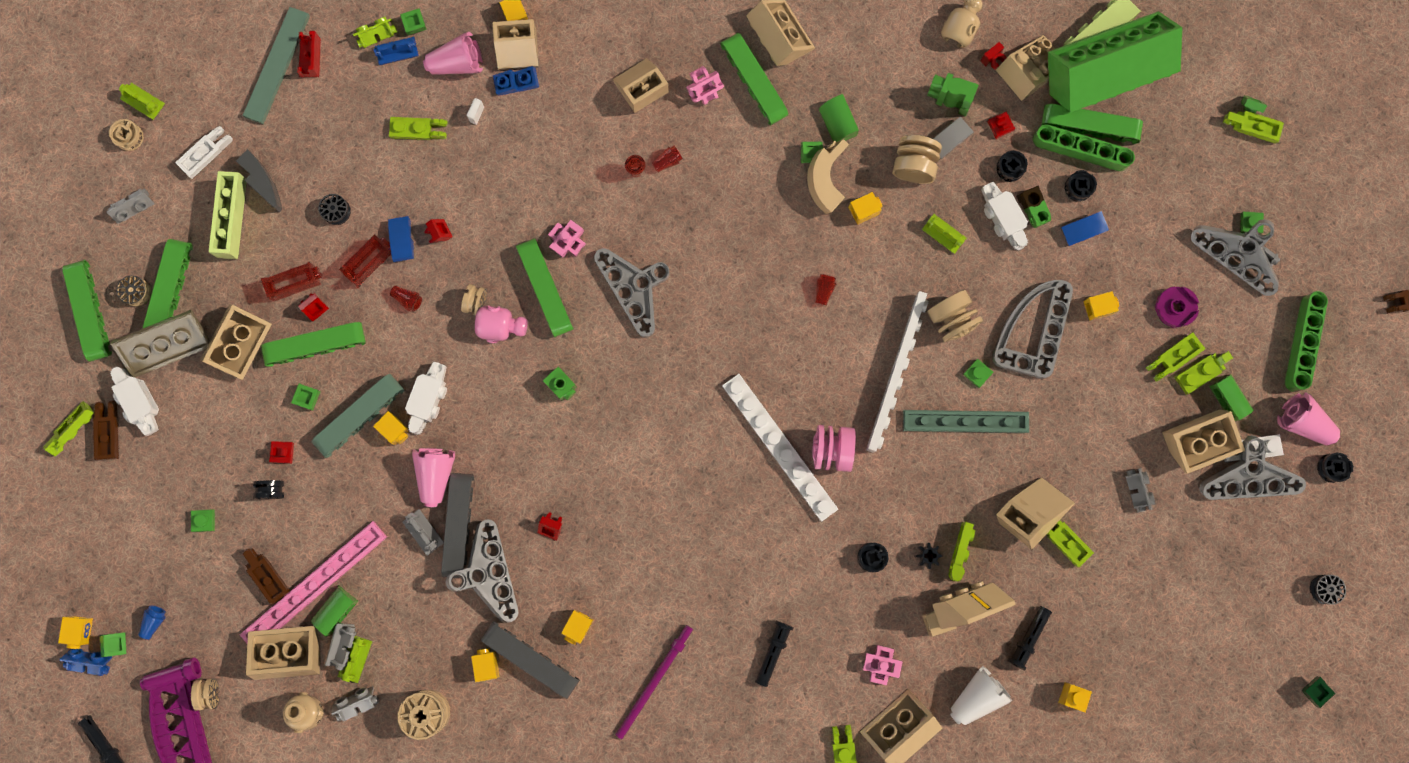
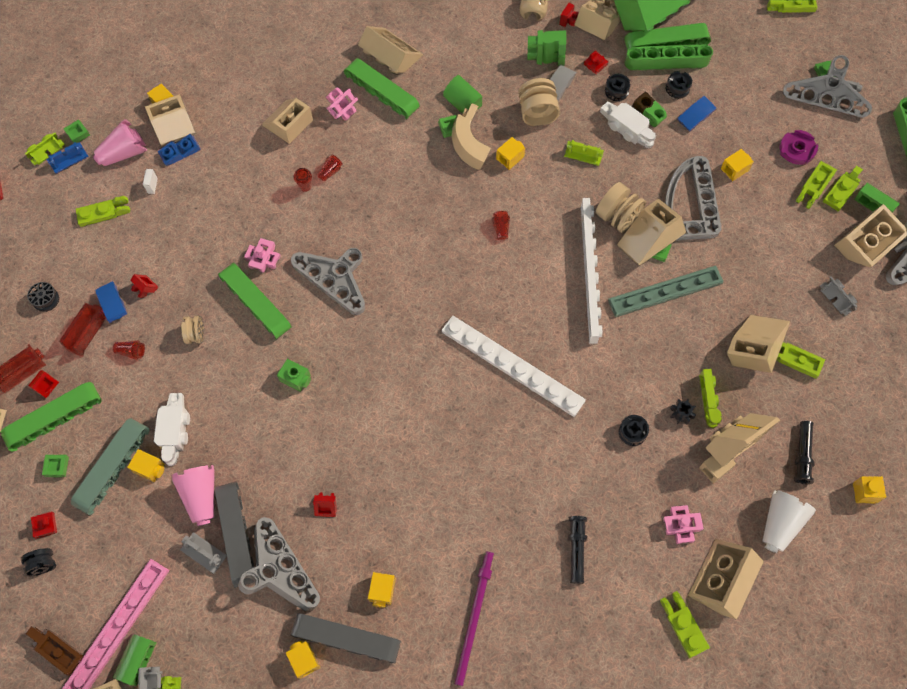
camera: 15 degrees left, 15 degrees down
(497, 324) = (219, 342): bright pink piece -> none
(834, 448) = (565, 345): bright pink wheel -> none
(974, 356) = (652, 232): none -> tan slope

